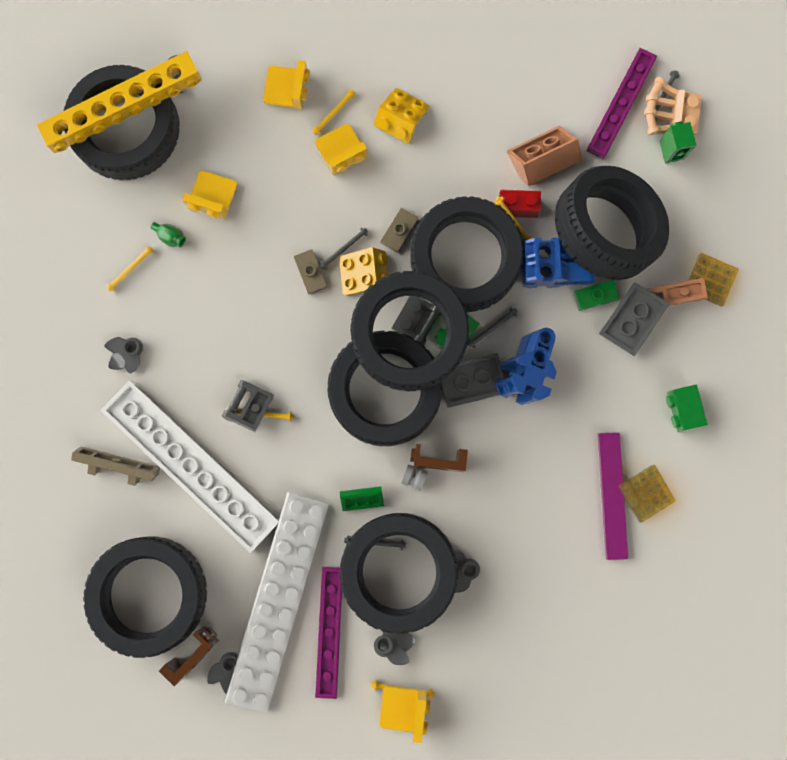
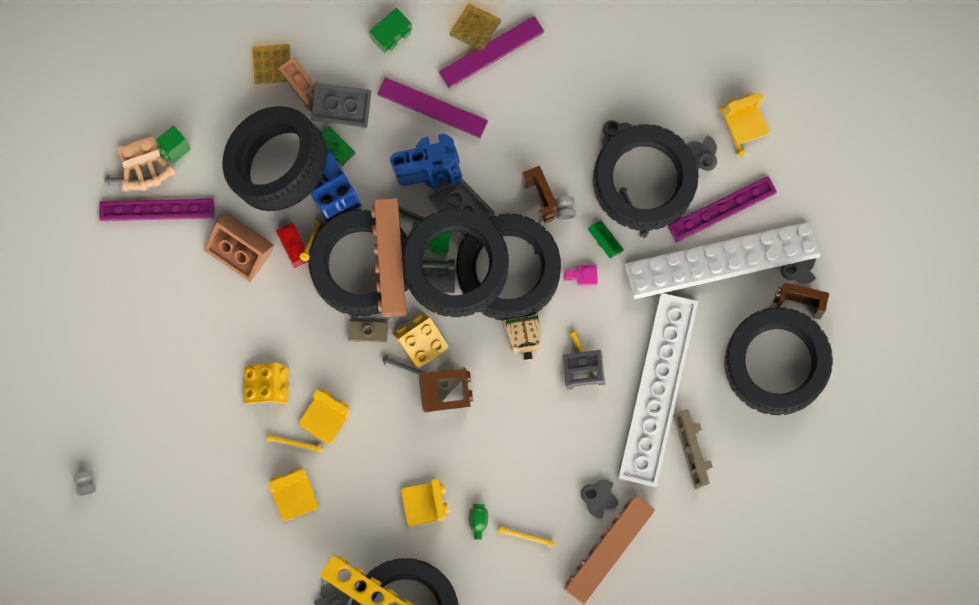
camera: 120 degrees left, 5 degrees down
(70, 335) = (609, 550): none -> nougat brick
(307, 249) = (429, 389): none -> reddish brown window
(312, 368) = (524, 335): none -> tan torso
(338, 459) = (585, 275): none -> dark pink plate
(465, 280) = (390, 258): none -> nougat brick
(585, 407) = (432, 107): none -> magenta tile

